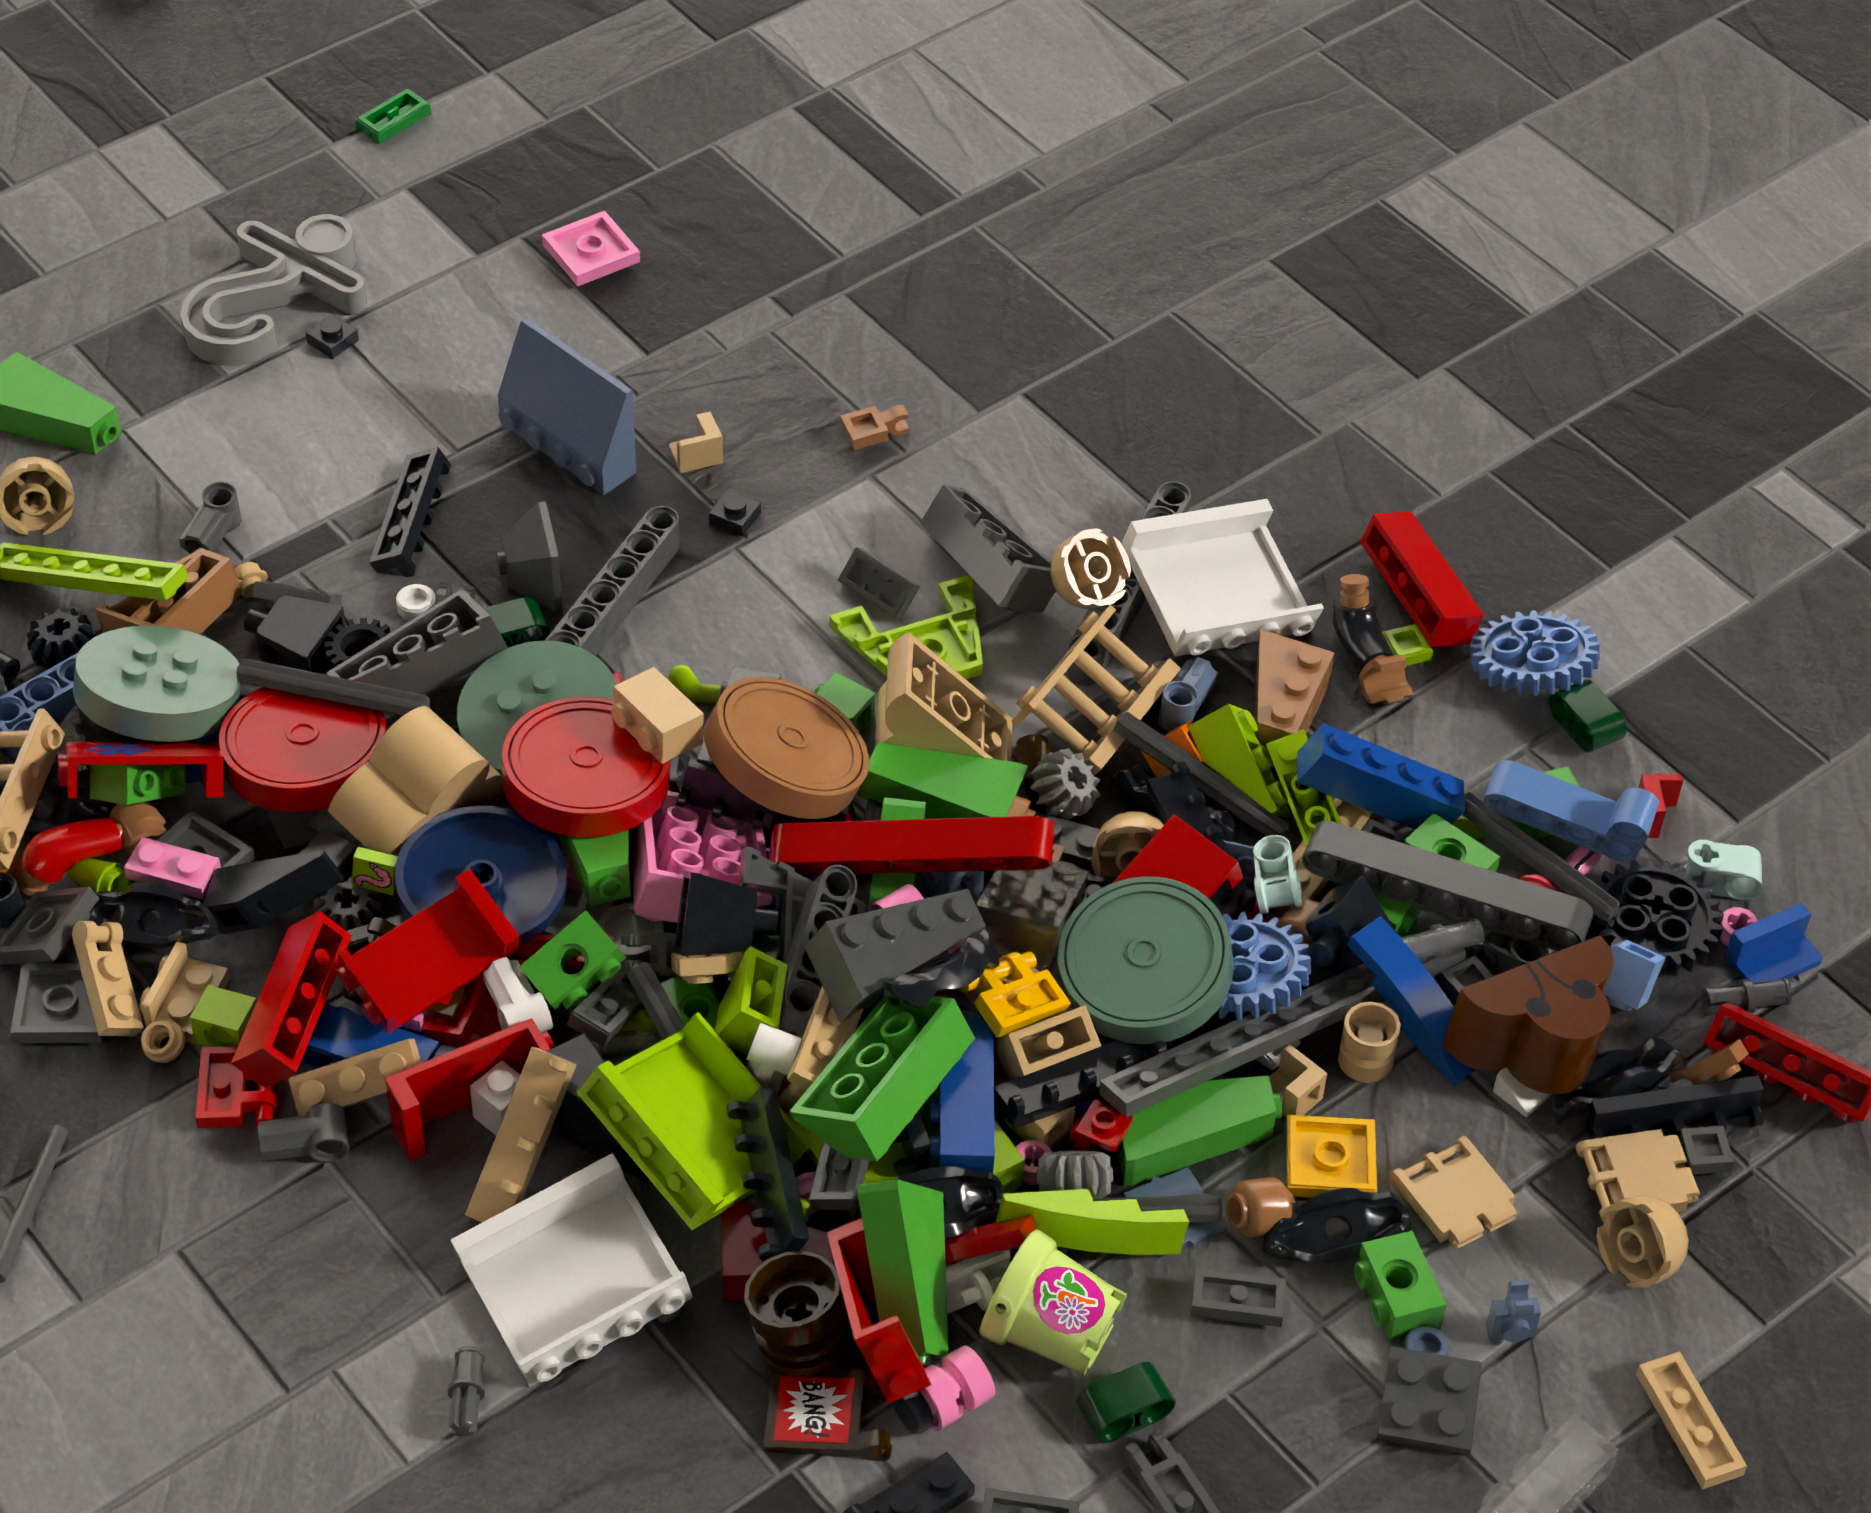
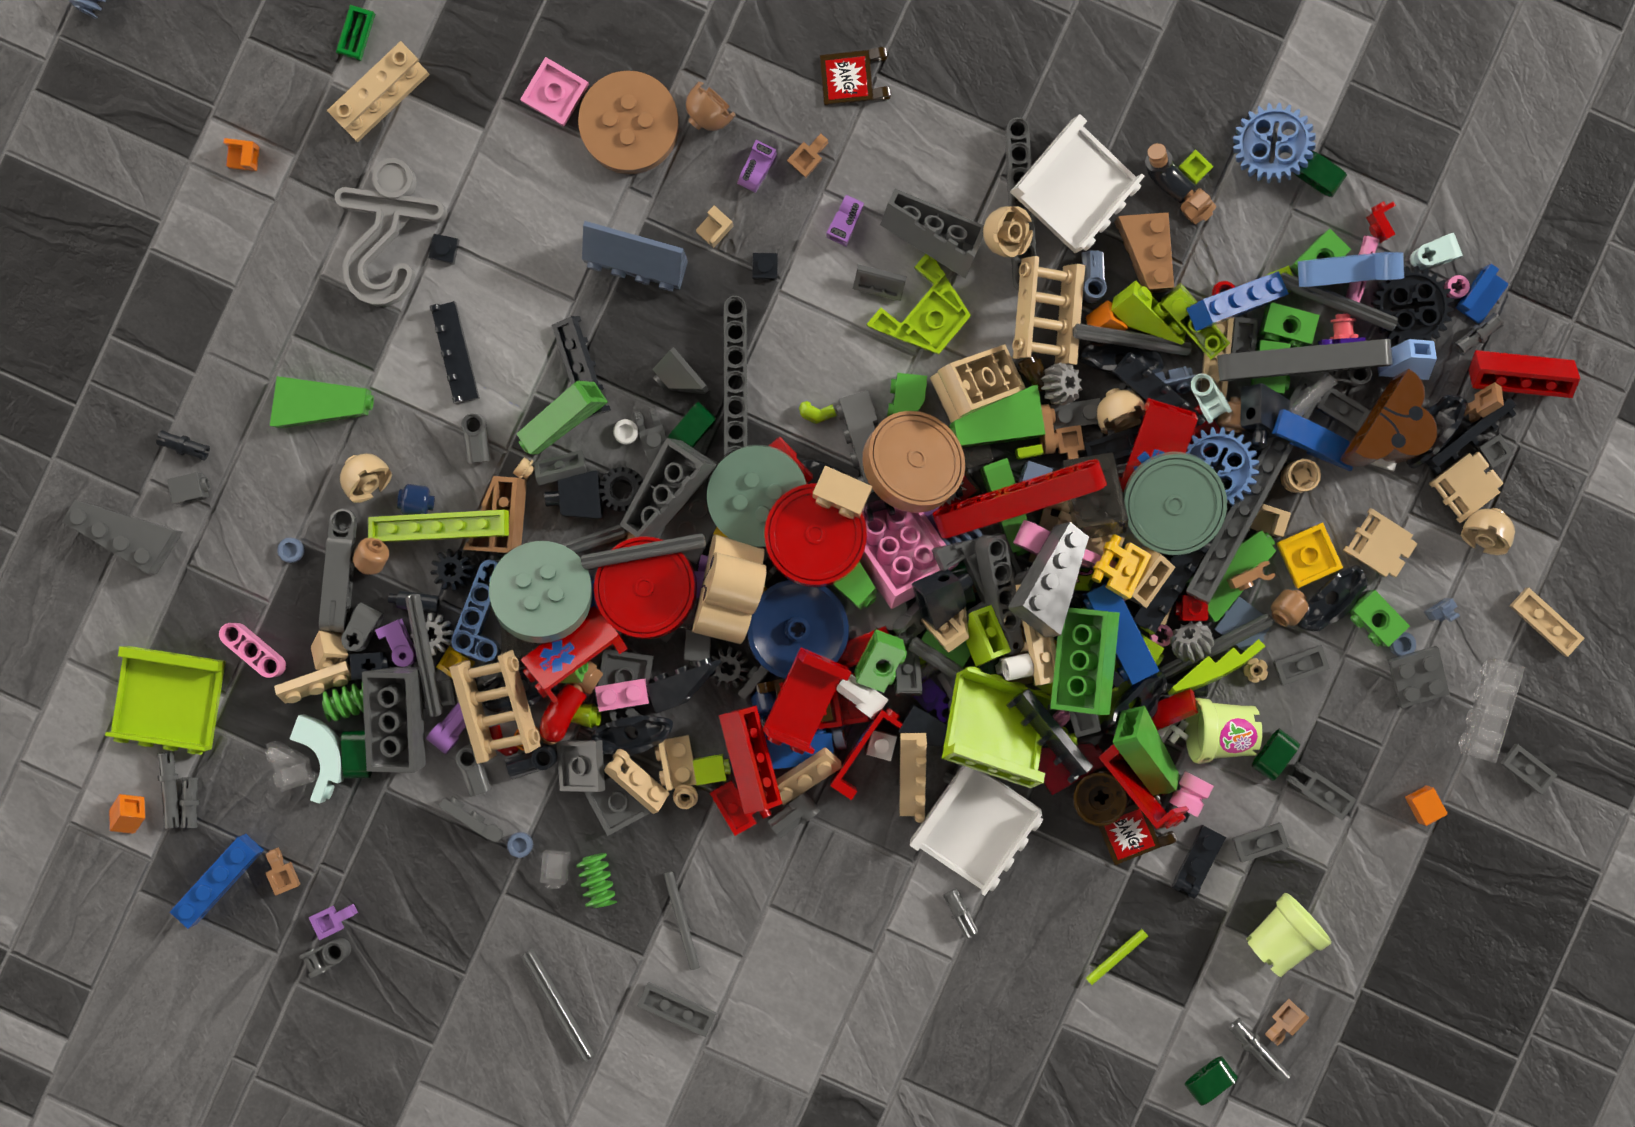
camera: 30 degrees left, 40 degrees up
(77, 536) = (415, 500): none -> dark blue head
(168, 160) = (242, 154): none -> orange panel
(260, 433) = (454, 352): none -> black hinge
(343, 528) = (561, 416): none -> bright green slope
(374, 870) = (737, 650): lime tile -> none
(379, 179) = (378, 91): none -> tan fence
(662, 309) = (628, 122): none -> medium nougat brick
(770, 327) = (707, 109): none -> medium nougat cylinder
(798, 409) = (757, 166): none -> medium lavender leg
(875, 506) = (845, 221): none -> medium lavender leg
(945, 973) = (1085, 605): black piece -> none
(986, 380) = (849, 77): none -> flag
(1157, 1284) = (1249, 670): none -> tan plate
(1207, 1108) = (1244, 580): none -> medium nougat plate
(1421, 579) = (1187, 118): red brick -> none

